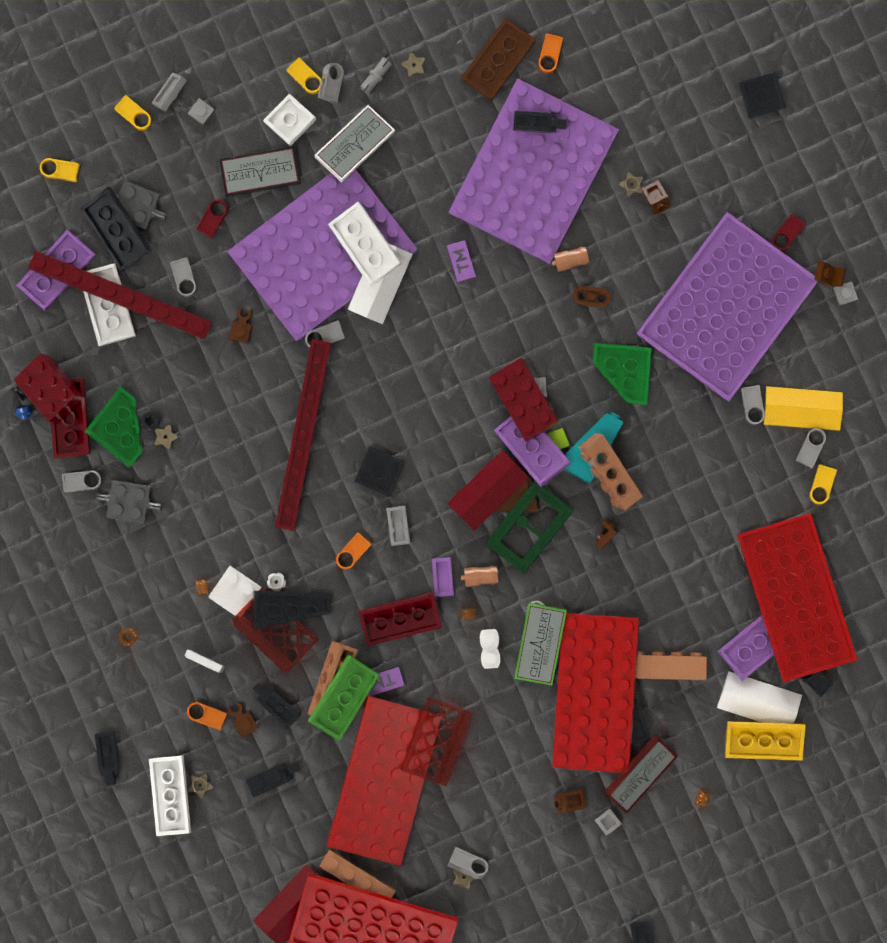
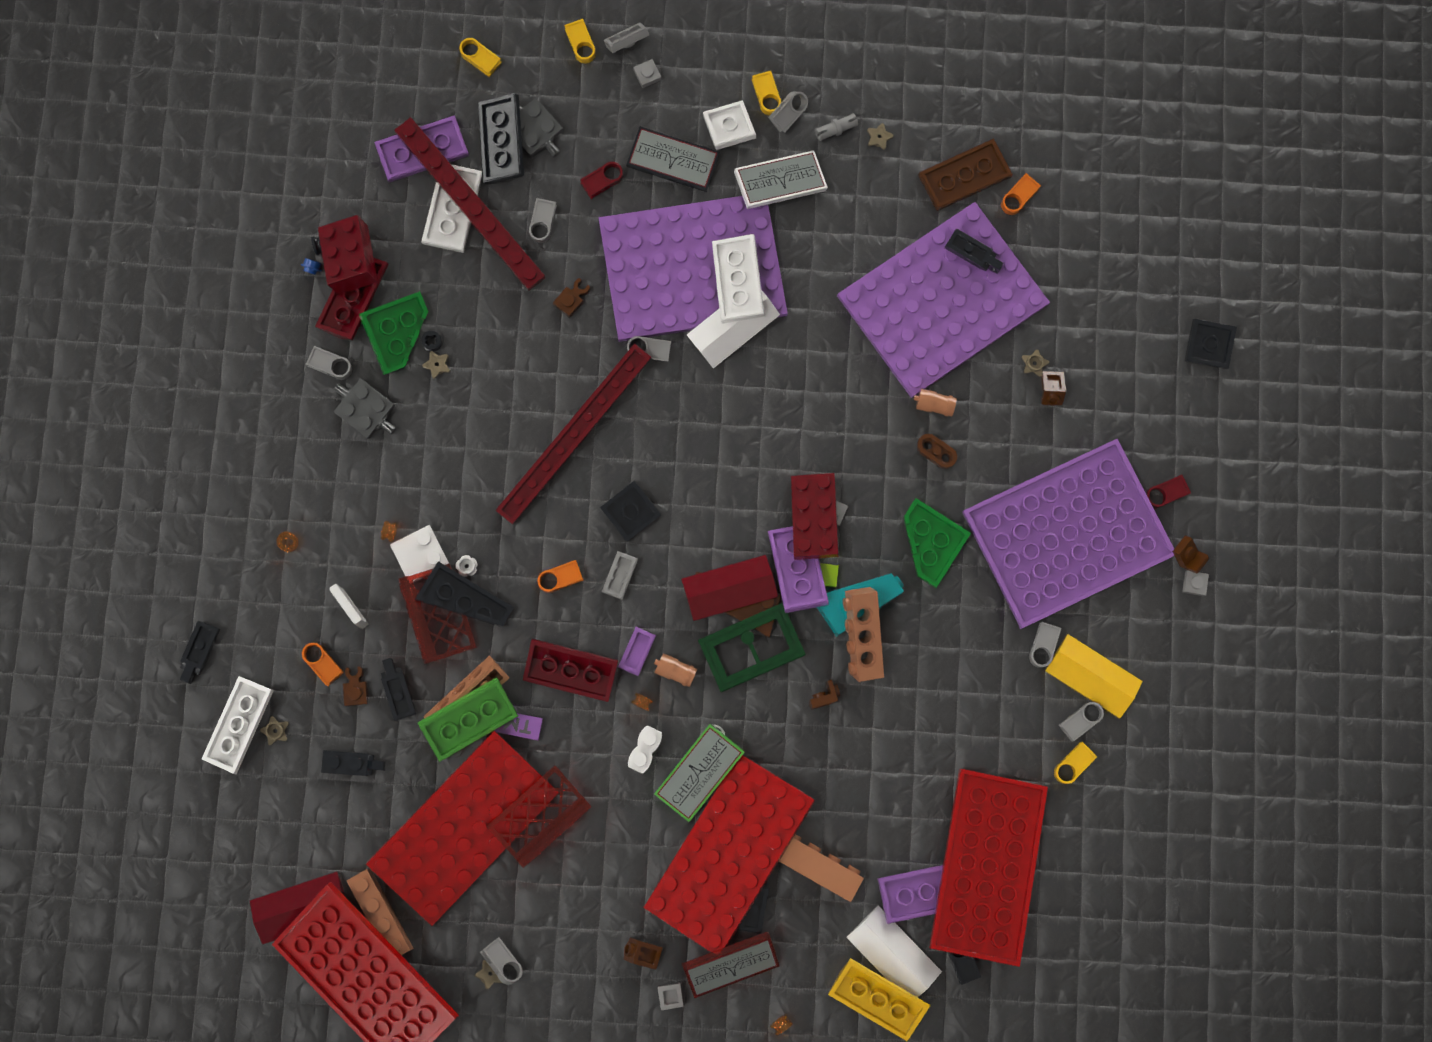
camera: 15 degrees right, 5 degrees down
(461, 261) = (824, 348): medium lavender tile -> none

